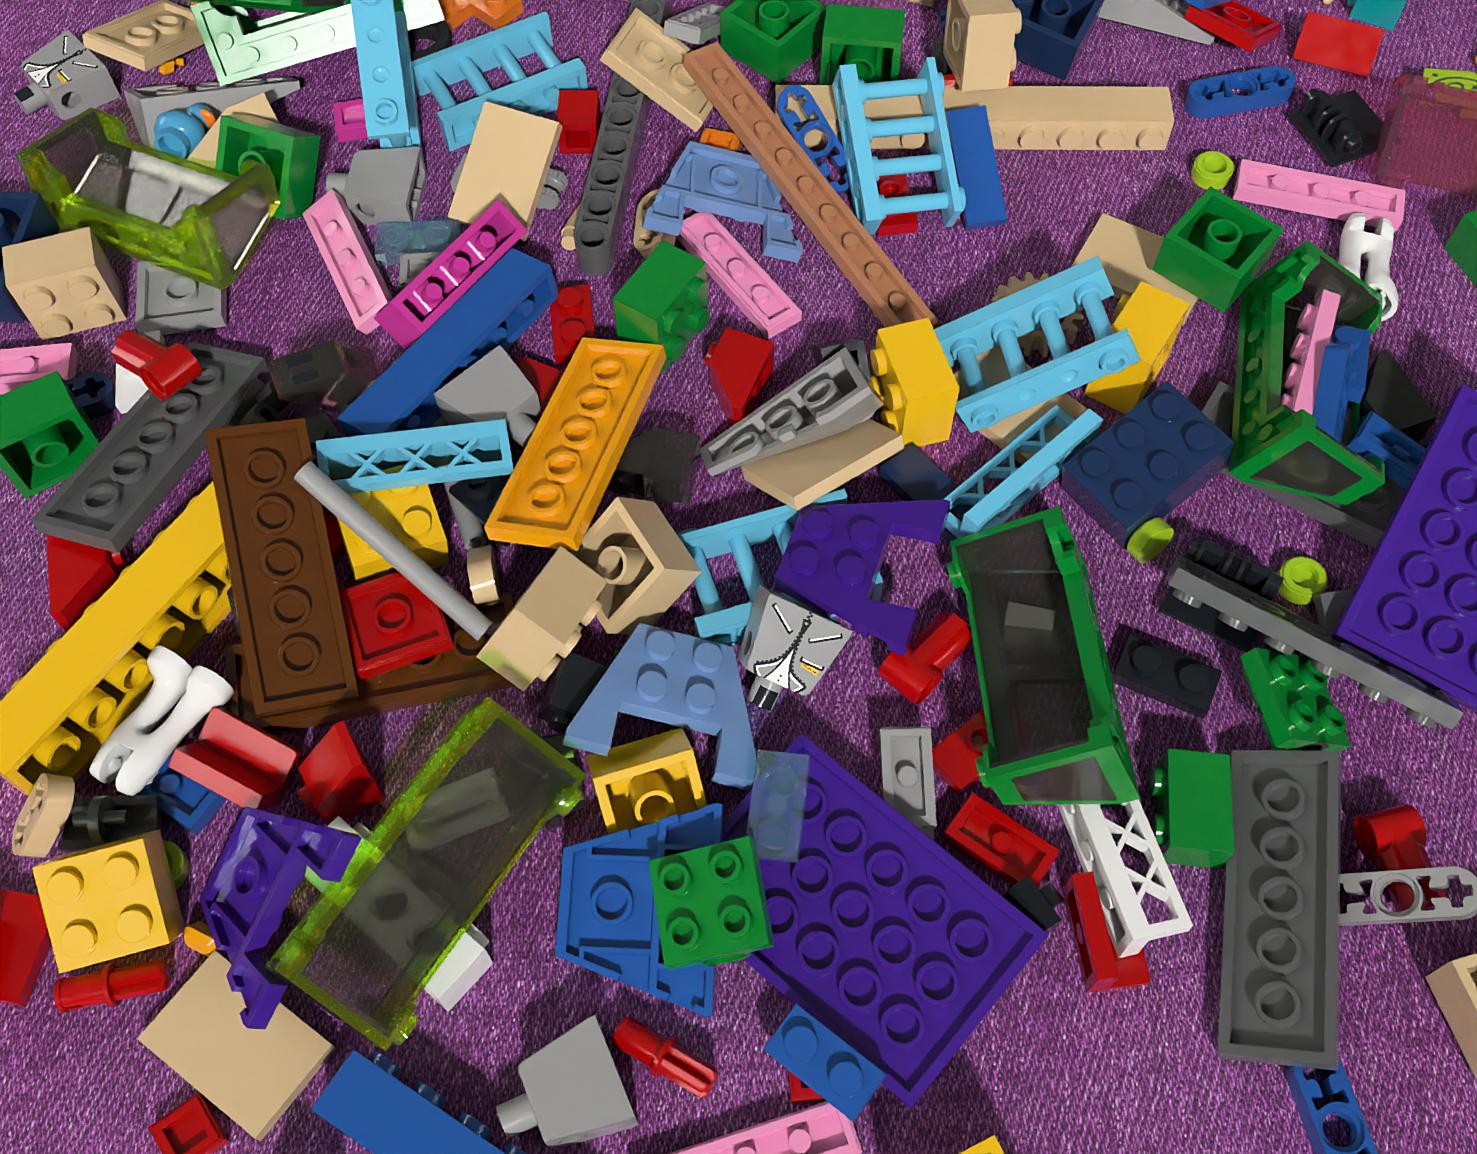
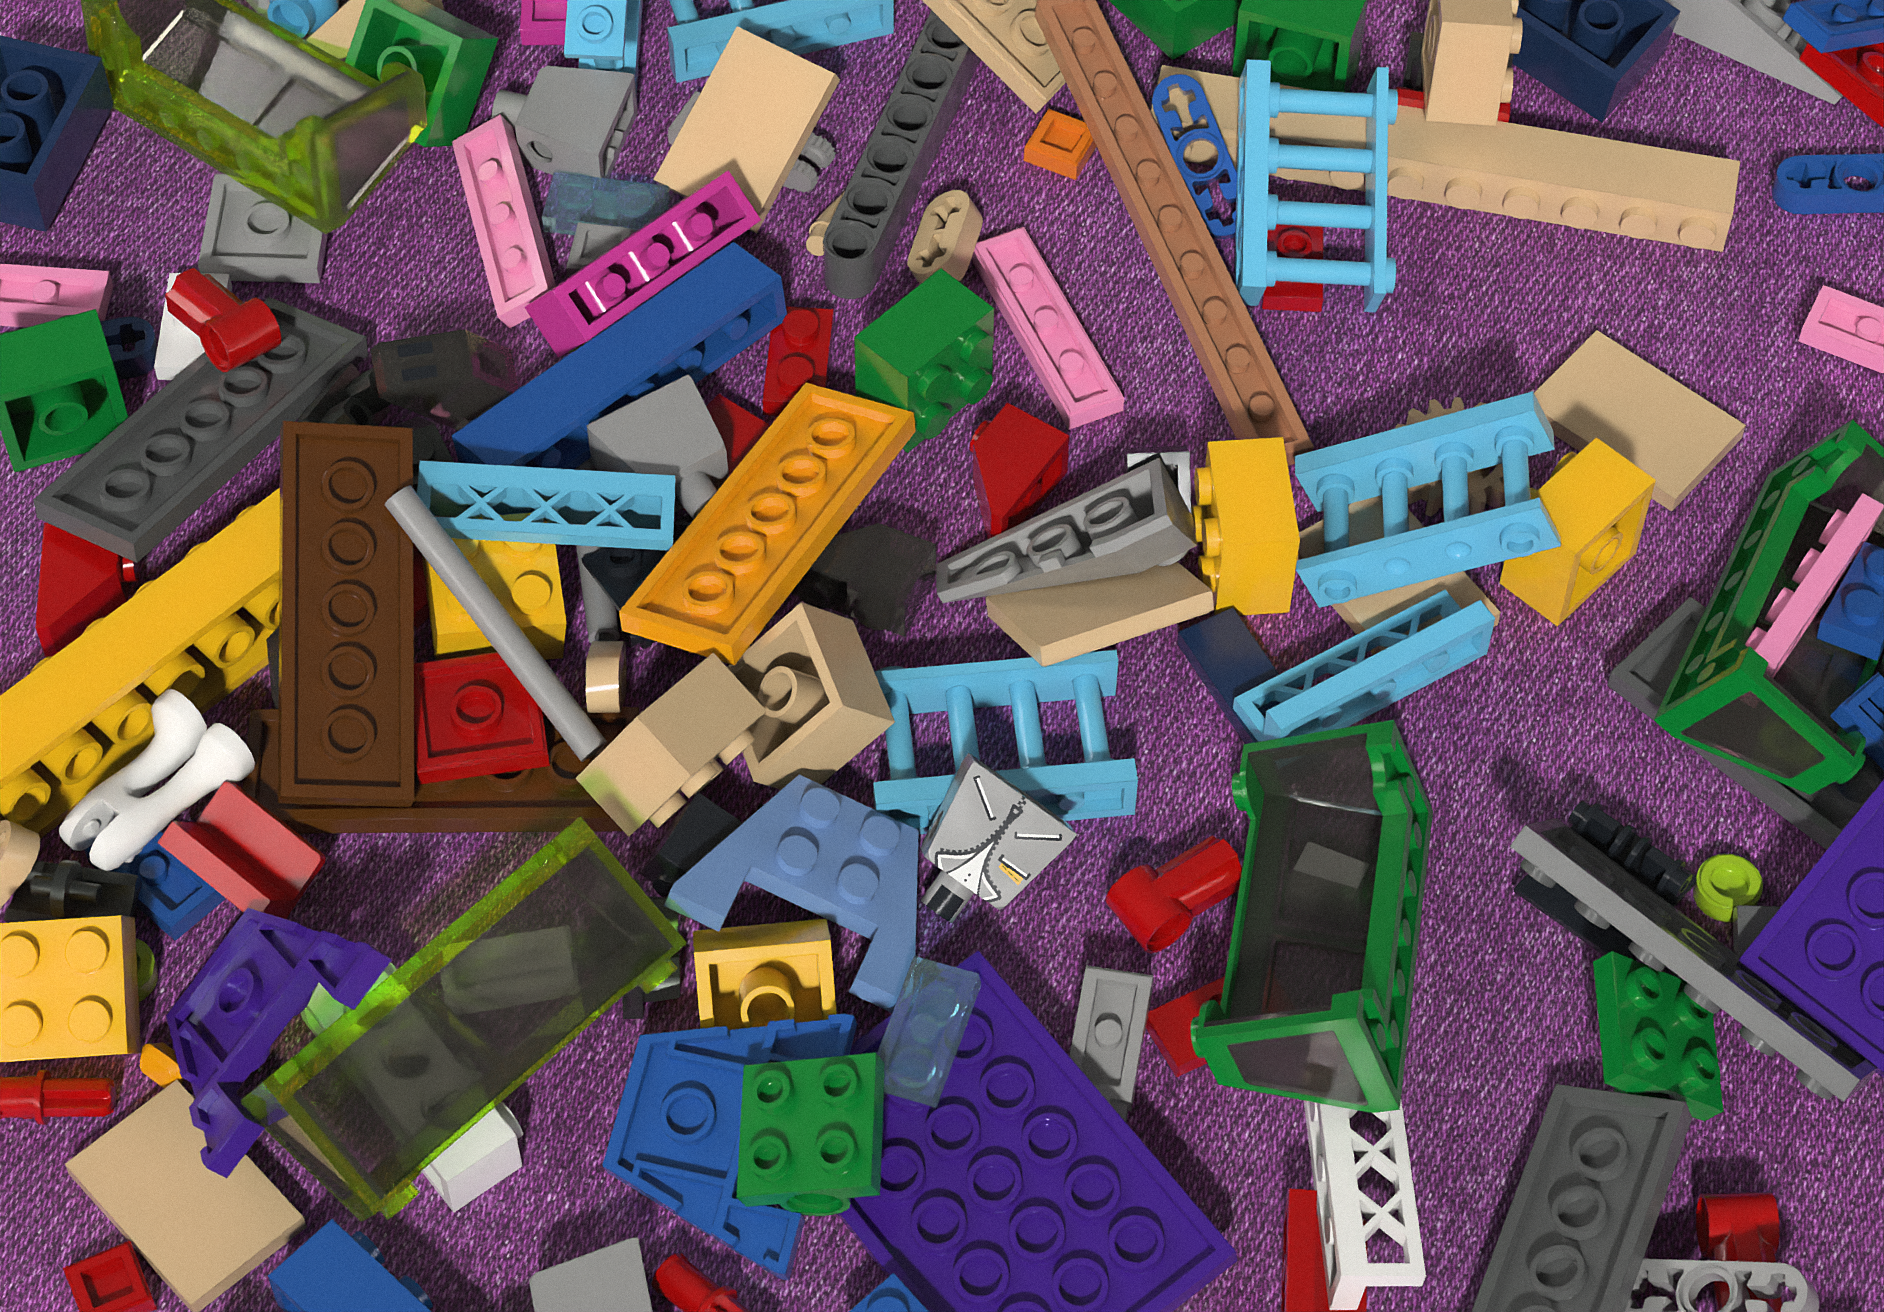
camera: 10 degrees right, 5 degrees down
(64, 283) = (114, 189): tan brick -> none
(338, 777) = (371, 894): red slope -> none
(581, 119) = (867, 70): red brick -> none
(728, 186) = (1056, 200): medium blue wing -> none
(839, 554) = (1089, 730): dark purple wing -> none
(976, 167) = (1424, 233): blue tile -> none
(1000, 842) = (1212, 1143): red plate -> none
(1036, 903) = (1235, 1221): black tile -> none
(1146, 463) = (1544, 691): dark blue brick -> none
(1150, 540) = (1527, 795): lime tile -> none
(1166, 676) = (1499, 977): black plate -> none
(1193, 808) = (1479, 1147): green brick -> none
(1212, 170) = (1781, 294): lime tile -> none
(1217, 249) = (1734, 410): green brick -> none
(1334, 388) = (1825, 637): blue beam -> none

